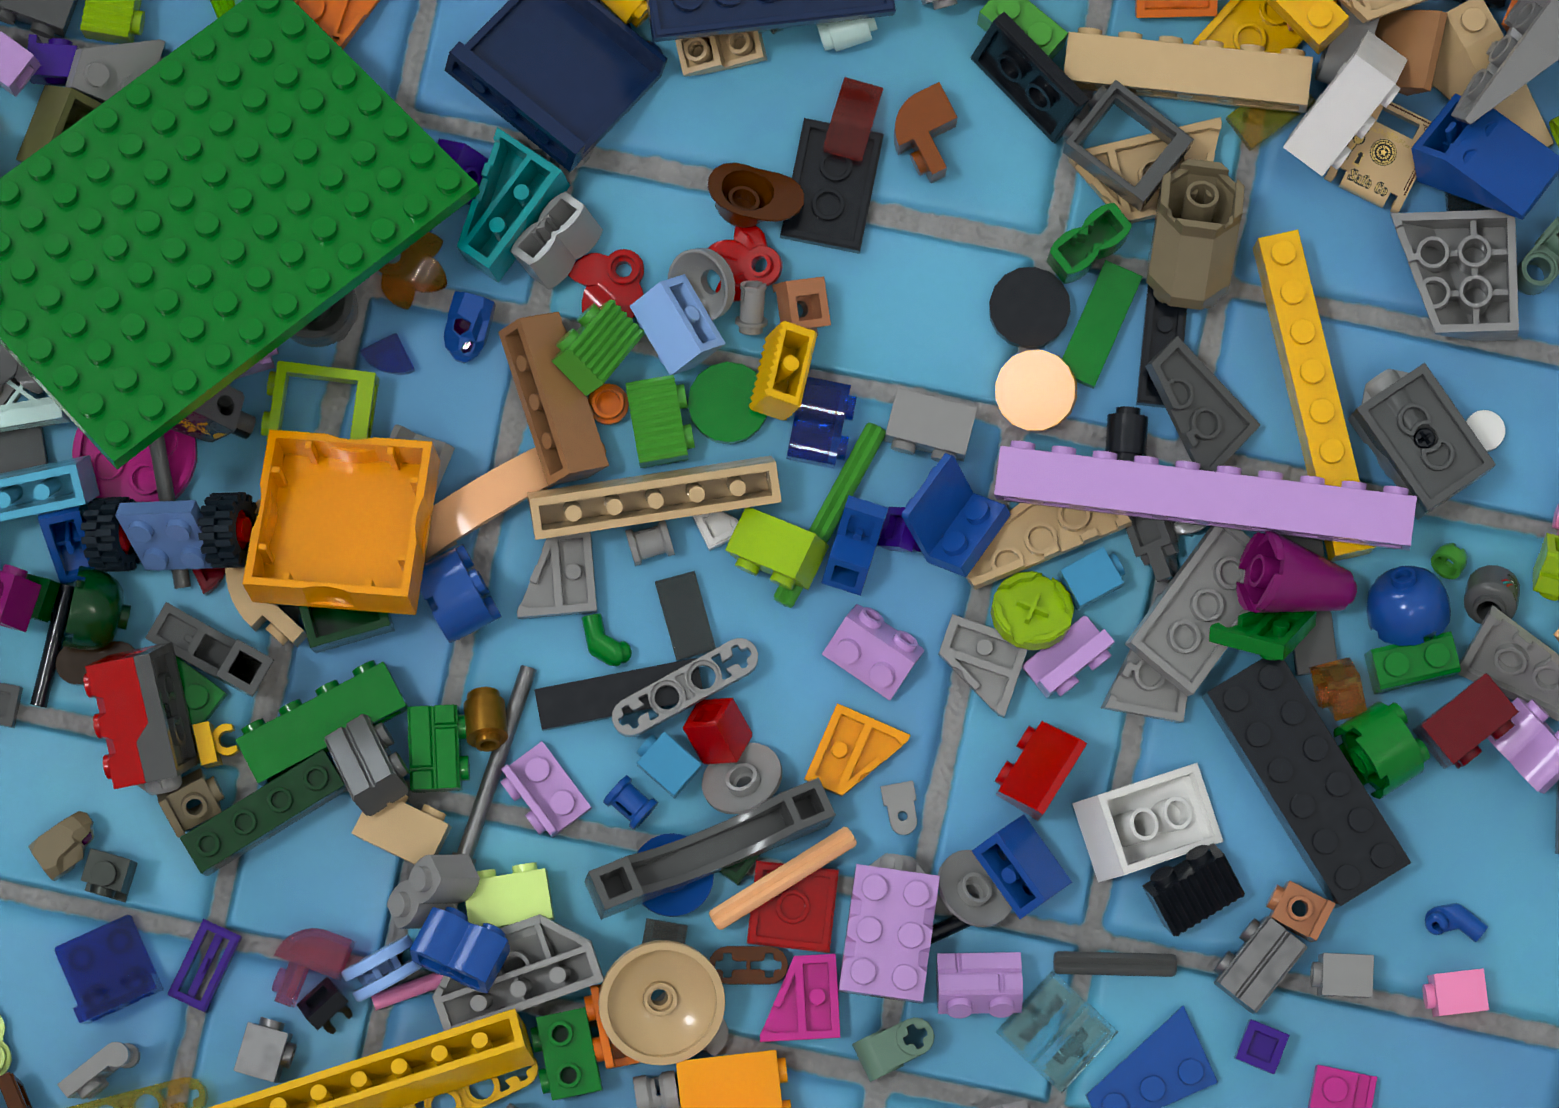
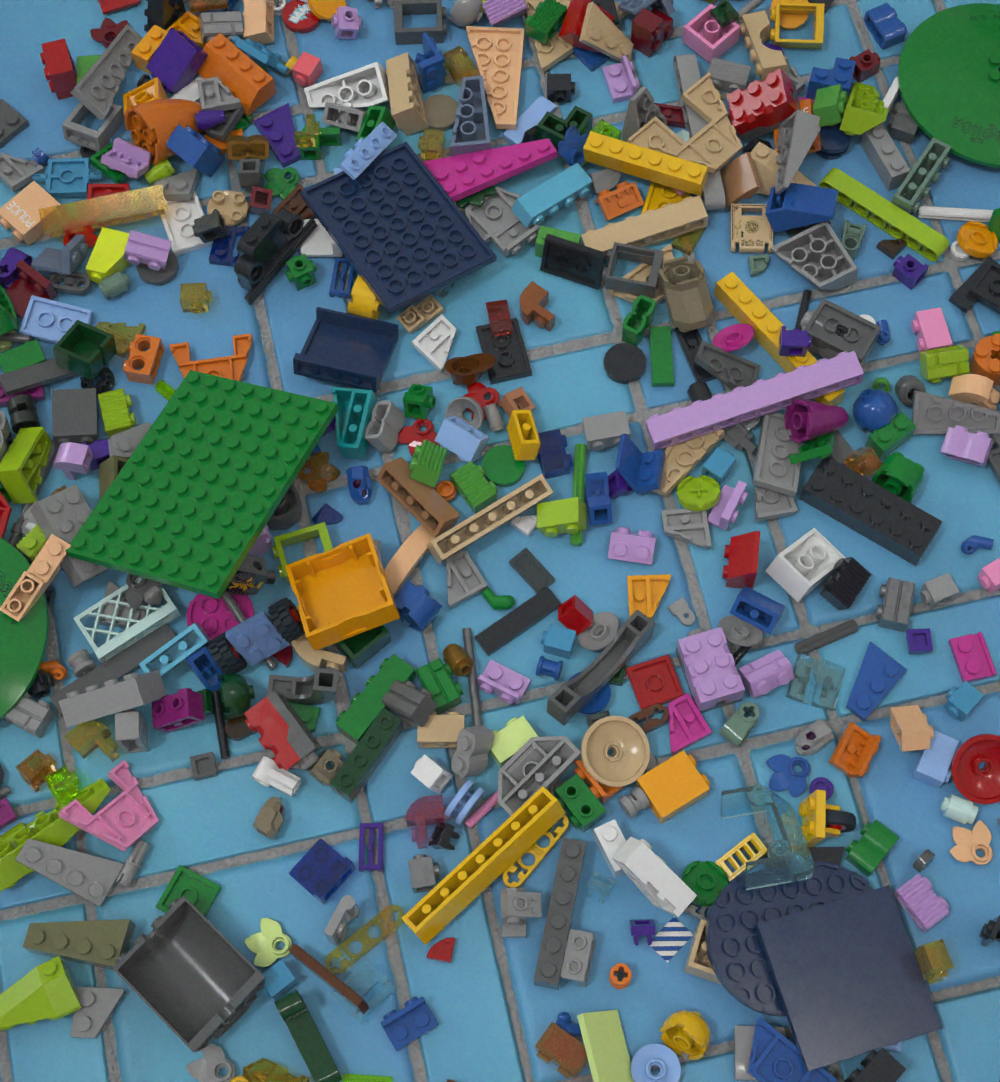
camera: 20 degrees left, 15 degrees down
(88, 770) = (269, 774): none -> white piece
(108, 875) = (300, 822): pearl dark grey brick -> none
(209, 743) = (323, 735): yellow tile -> none
(352, 894) = (431, 773): none -> white brick
(460, 949) = (501, 769): blue brick -> none
(636, 220) = (419, 401): none -> green brick
(650, 542) = (497, 543): light grey bush -> none
(688, 693) = (551, 602): light grey beam -> none
(721, 116) = (436, 342): none -> white wing
(782, 878) = (643, 668): light nougat axle -> none
(846, 33) = (475, 281): light aqua brick -> none
(1036, 390) = (647, 395): tile -> none
(1239, 351) = (734, 337): none -> dark pink dish
(1316, 913) = (910, 568): nougat brick -> none
(1328, 423) = (794, 342): none -> dark purple brick
(1347, 105) = (726, 209): white wedge -> none
(1359, 226) = (758, 264): none -> sand green tile
(1383, 362) = (803, 307): none -> black bar
(1465, 722) = (931, 446): dark red brick -> none
(1508, 463) = (884, 335): none -> blue arm

